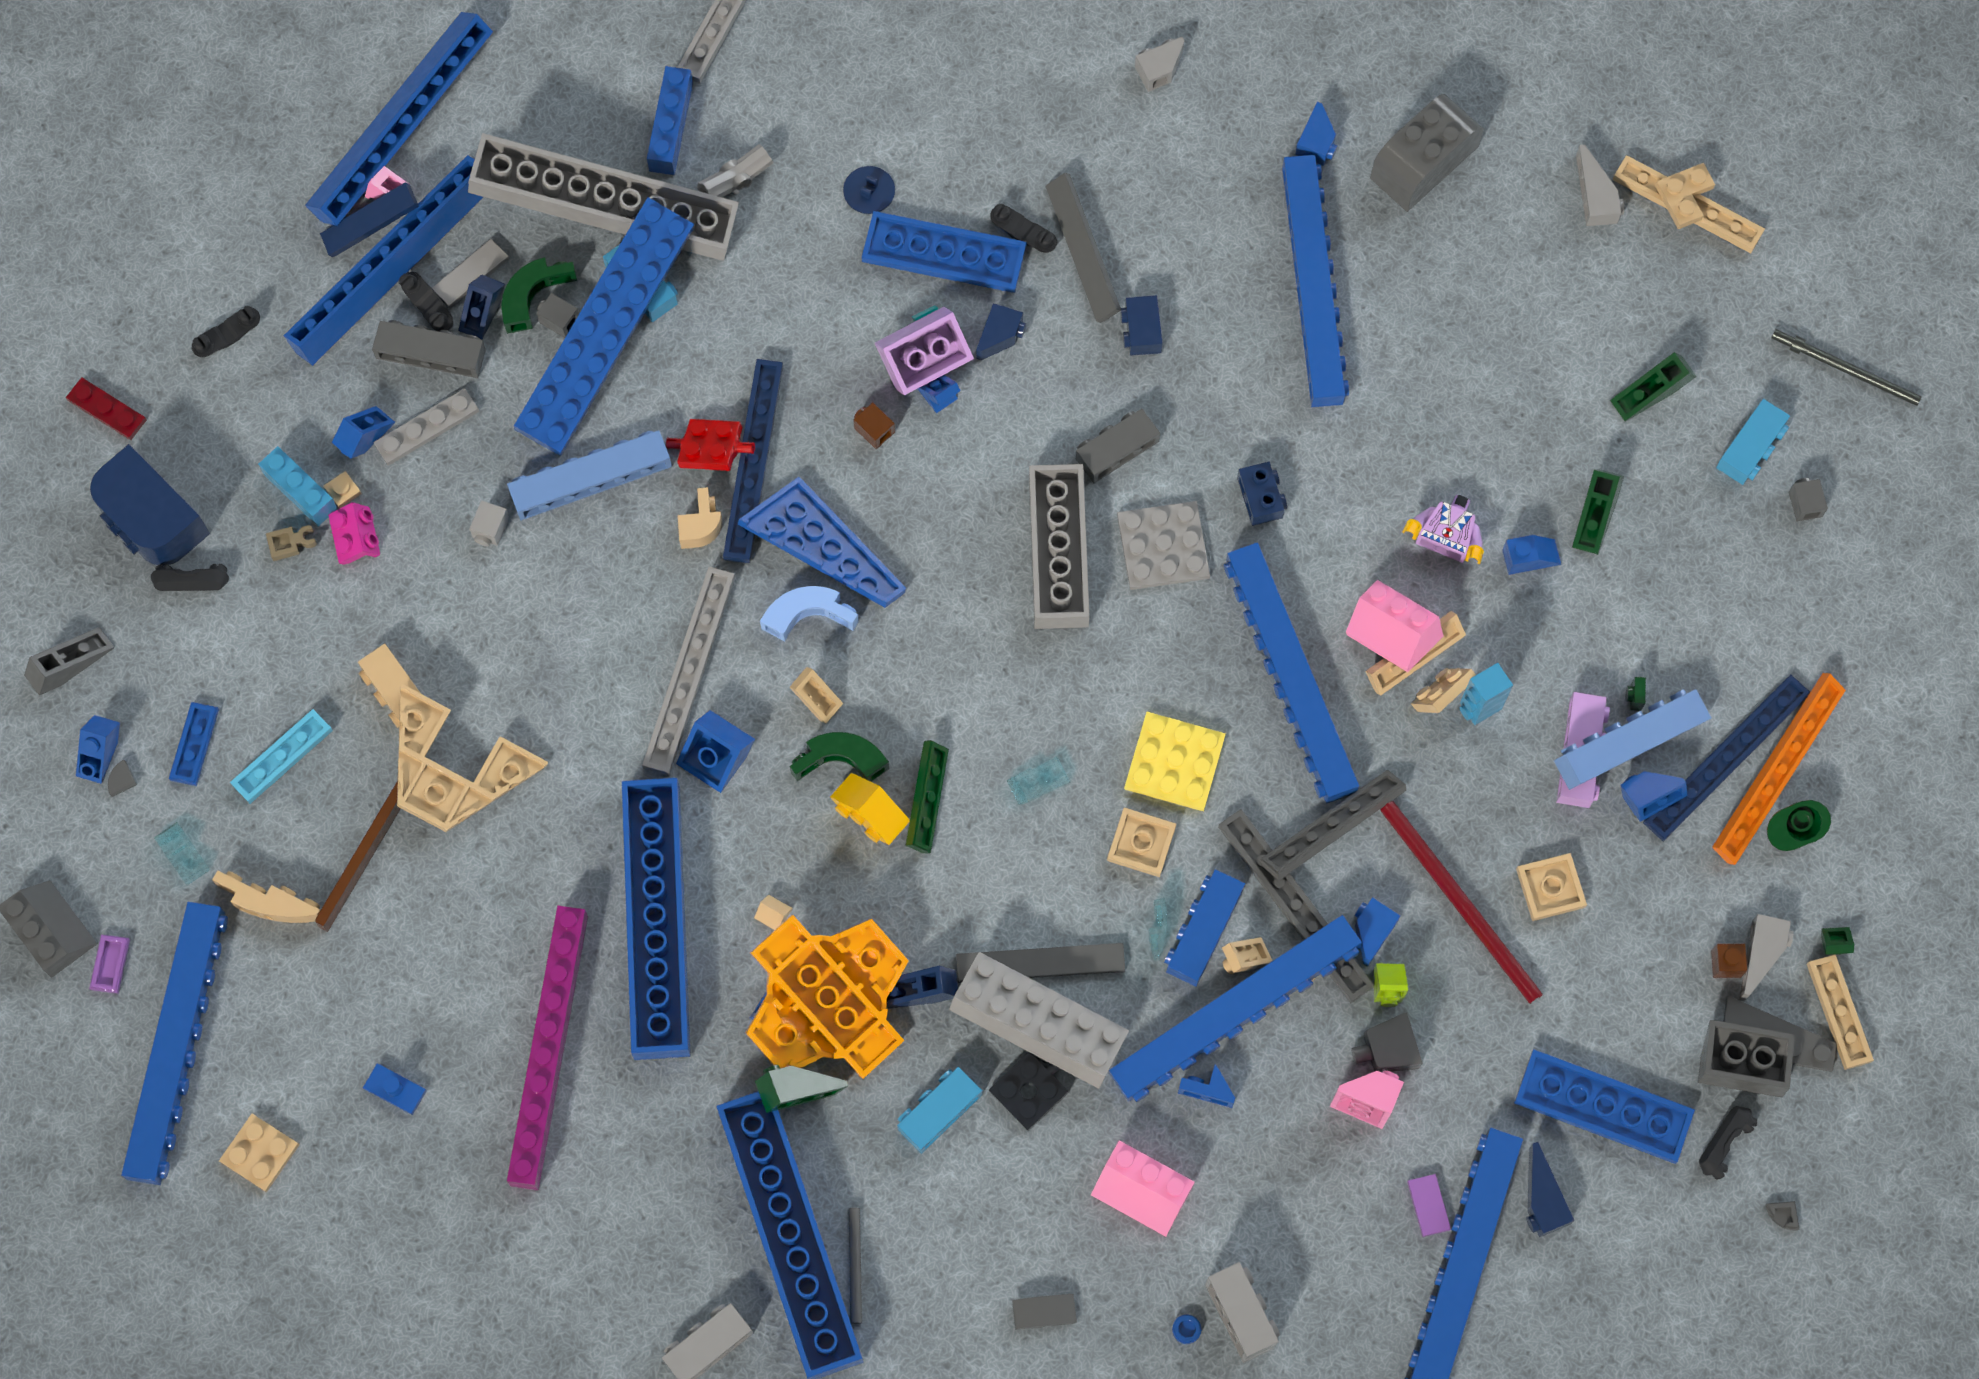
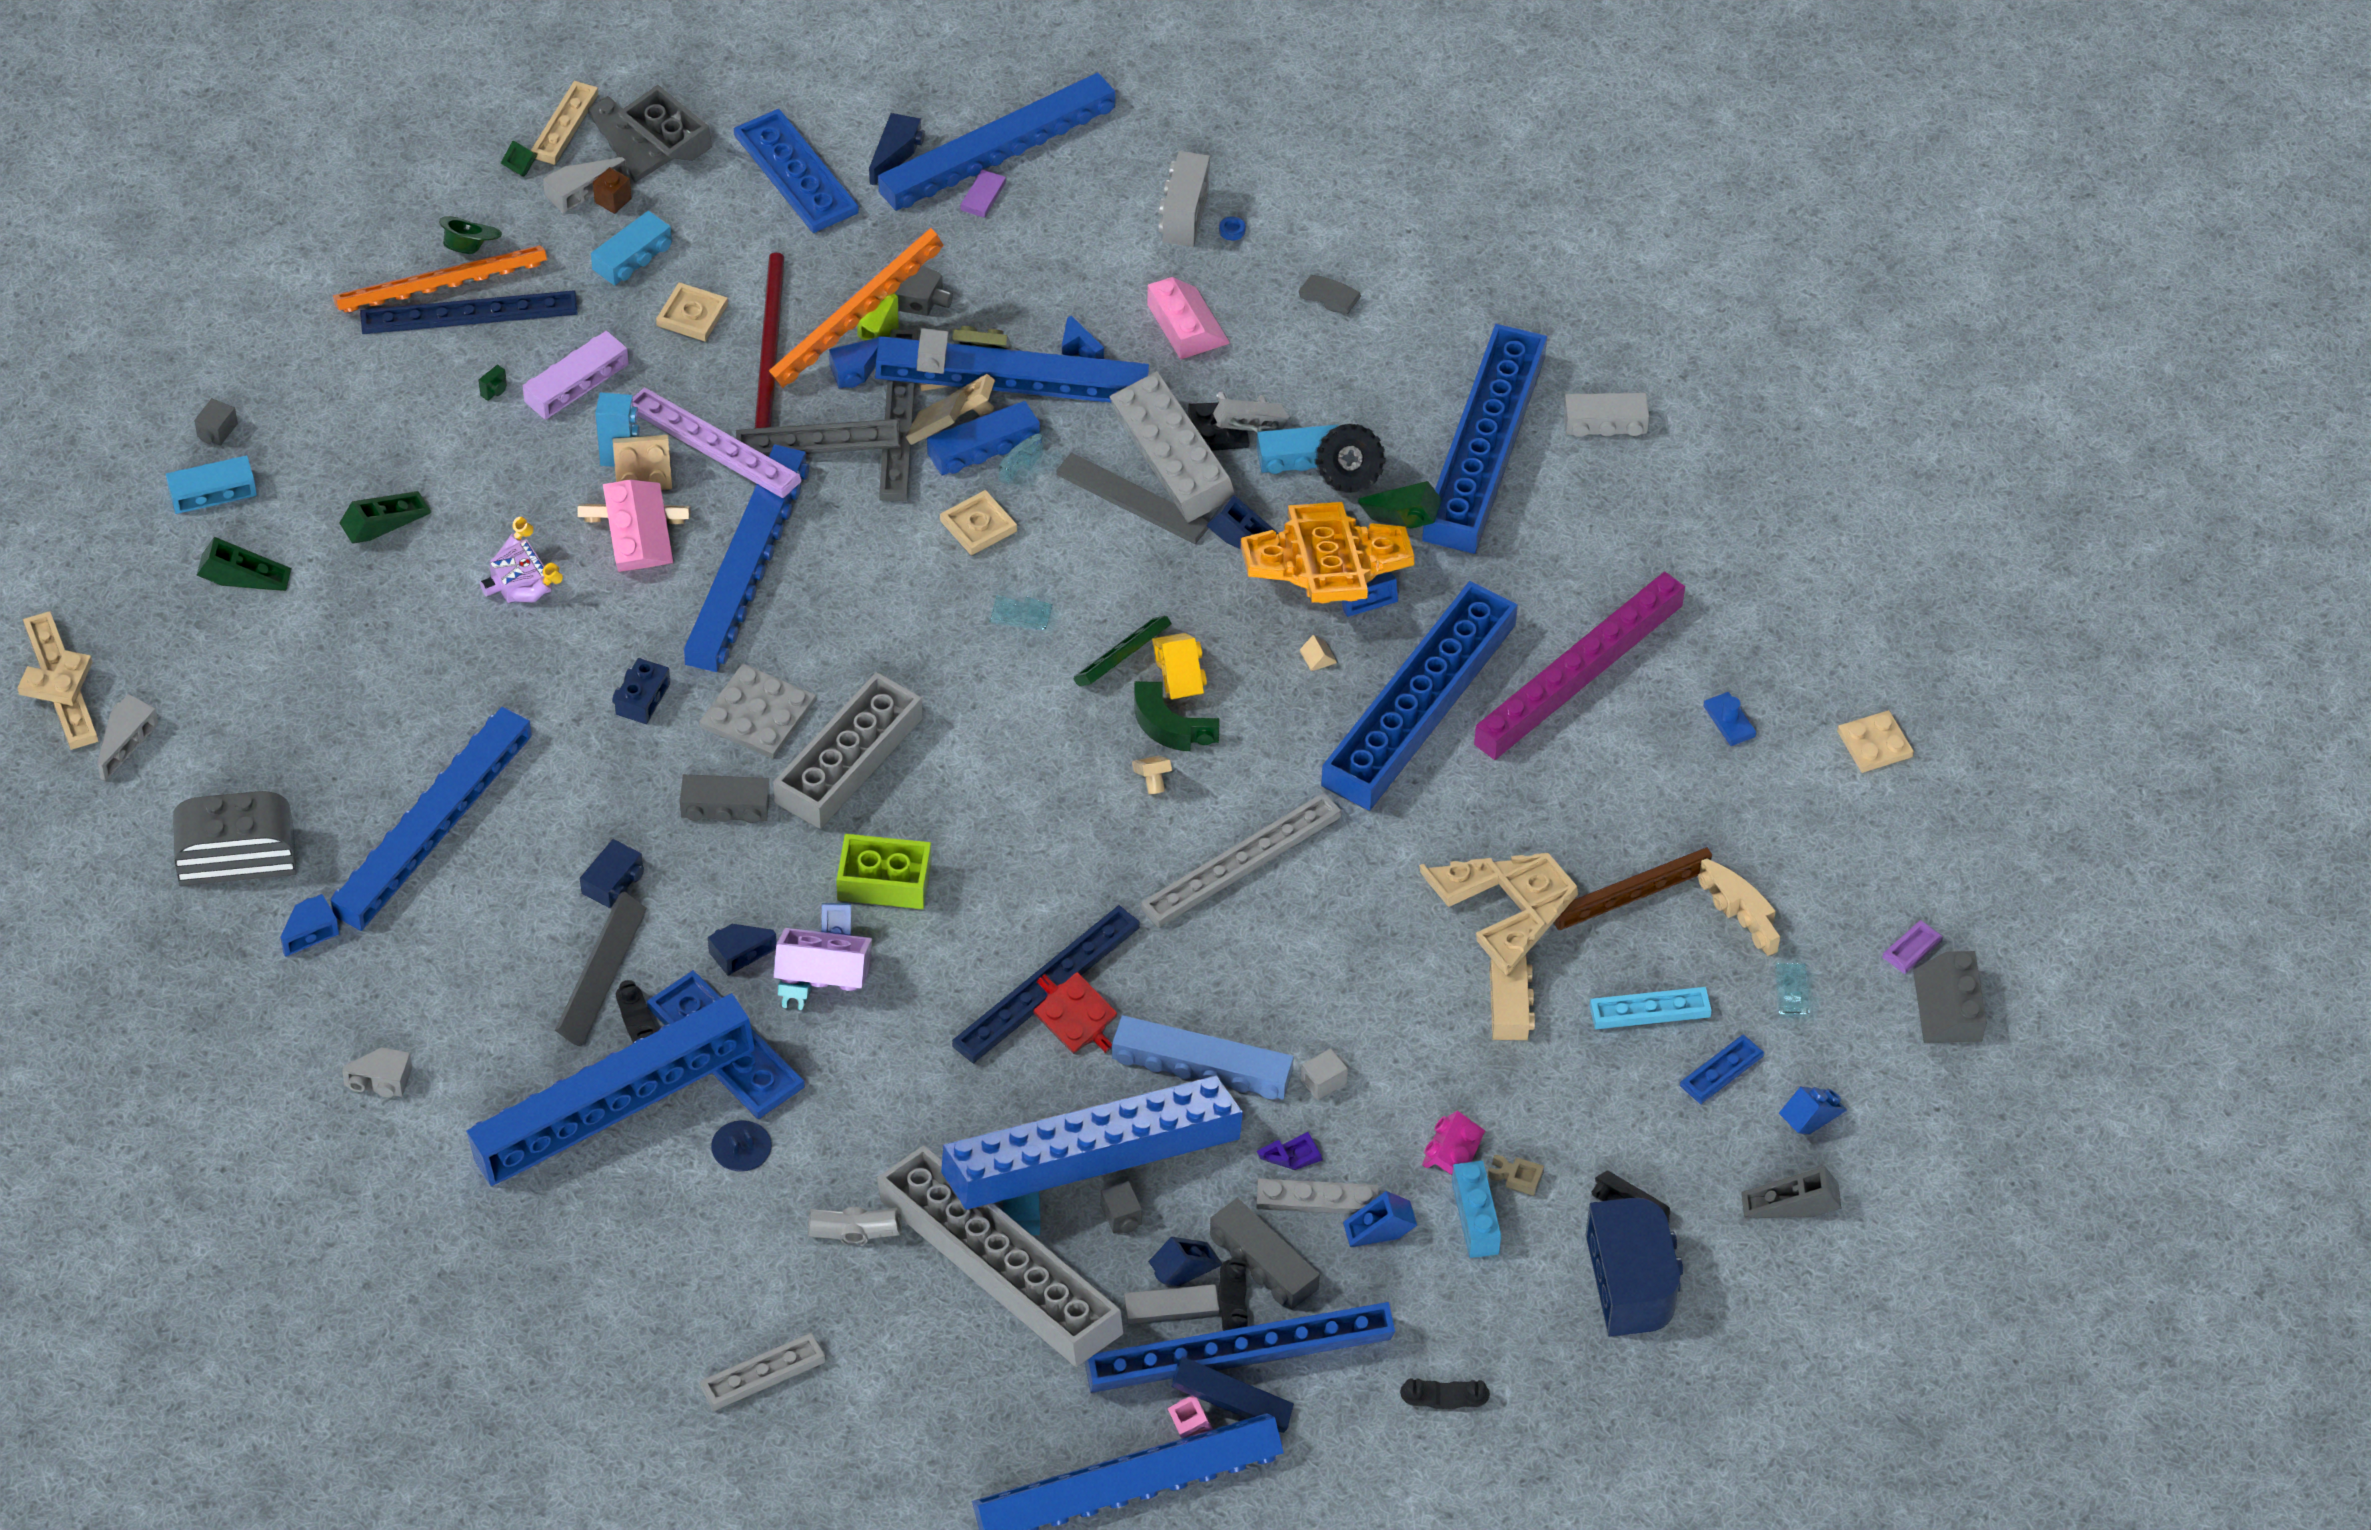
camera: 145 degrees left, 20 degrees down
(106, 408) = (1608, 1401): dark red plate -> none
(120, 779) = (1808, 1077): dark grey tile -> none
(174, 1043) = (1893, 851): blue brick -> none
(342, 489) = (1435, 1191): tan plate -> none
(469, 449) = (1292, 1154): none -> dark purple slope
(524, 287) = (1126, 1252): dark green arch -> none
(670, 120) = (872, 1310): blue brick -> none
(700, 528) = (1137, 955): tan brick -> none
(714, 750) = (1267, 785): blue slope -> none
(805, 602) = (1102, 846): light blue arch -> none
(813, 533) = (1045, 888): wing -> none
(855, 1266) = (1447, 404): dark grey bar -> none
(873, 425) = (917, 941): reddish brown brick -> none
(882, 1115) = (1359, 473): none -> black bush
(944, 460) = (884, 871): none -> lime brick
(979, 142) = (611, 1089): none -> blue brick
(1002, 1105) = (1249, 415): none -> light grey piece
(1175, 761) = (898, 561): light yellow plate -> none
(1254, 908) = (936, 417): none -> dark tan tile
(1283, 1018) = (992, 339): none -> olive plate
(1299, 948) = (932, 351): none -> light grey brick
(1369, 1097) = (968, 250): bright pink slope -> none
(1396, 958) = (856, 308): none -> orange plate
(1410, 756) = (715, 443): none -> lavender tile
(1530, 554) = (473, 519): blue slope -> none
(1631, 739) = (534, 344): medium blue brick -> none
(1652, 793) = (555, 313): blue slope -> none
(1657, 913) = (631, 248): none -> dark azure brick
(1712, 1158) = (730, 102): black piece -> none
(1784, 1214) = (733, 47): dark grey tile -> none
(1798, 345) = (92, 529): pearl dark grey bar -> none

